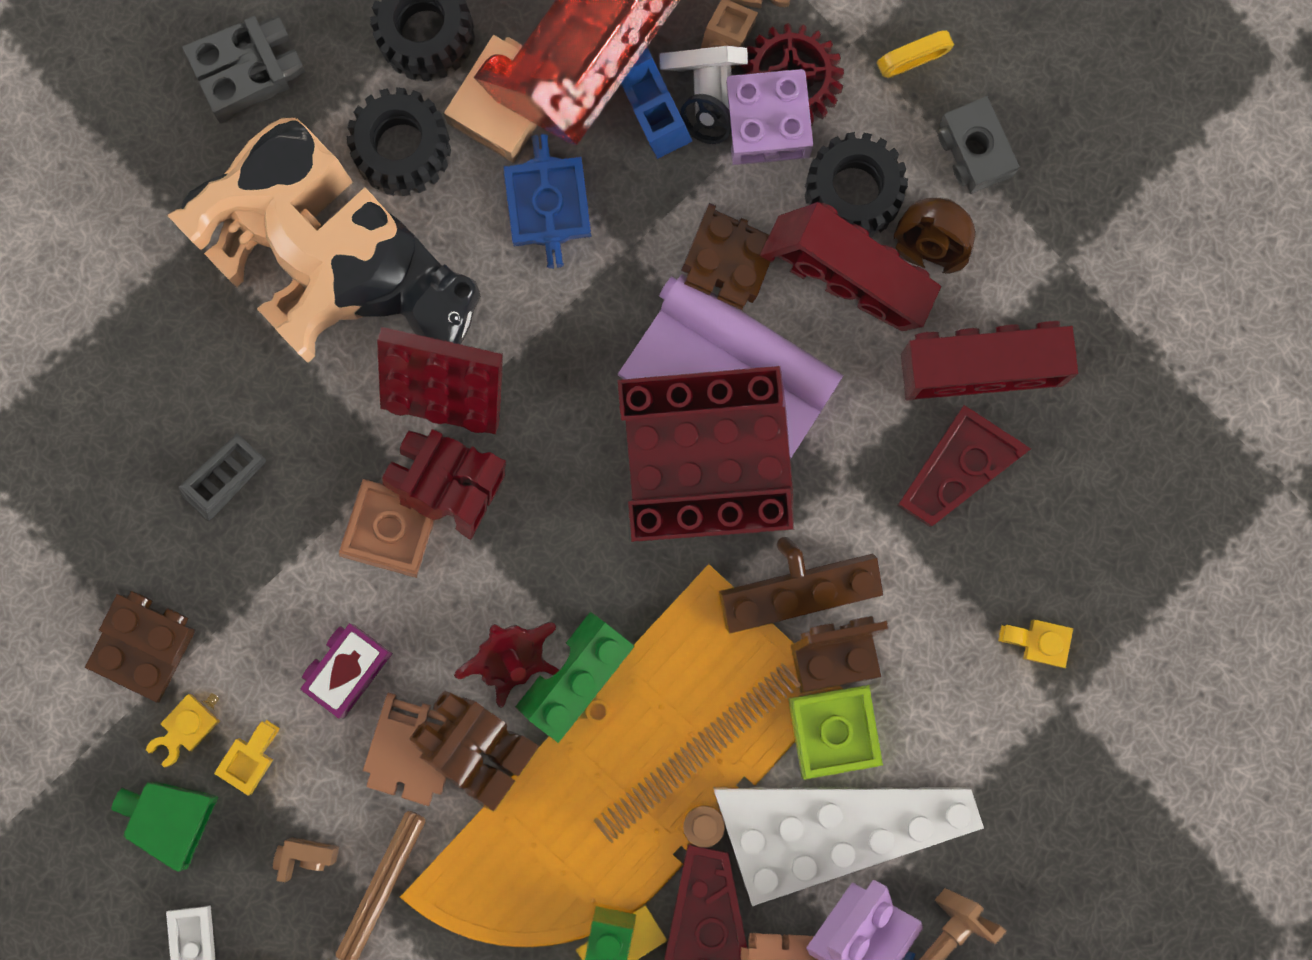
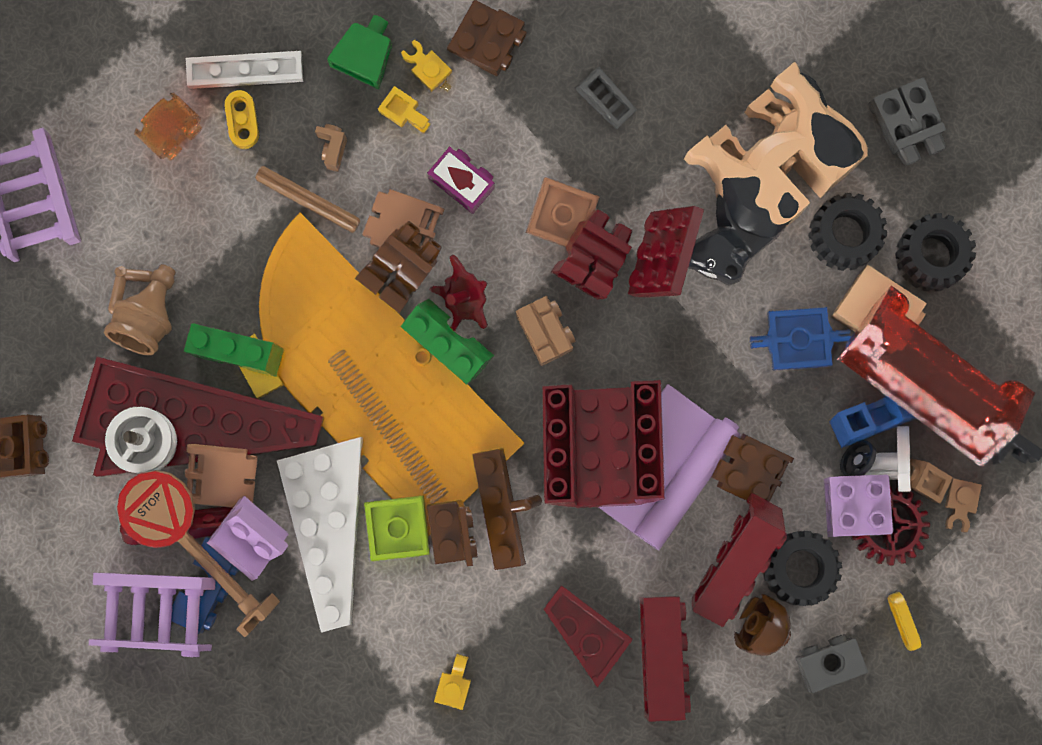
camera: 90 degrees right, 0 degrees up
(552, 543) = (544, 330): none -> medium nougat brick
(703, 826) = (335, 428): medium nougat plate -> none

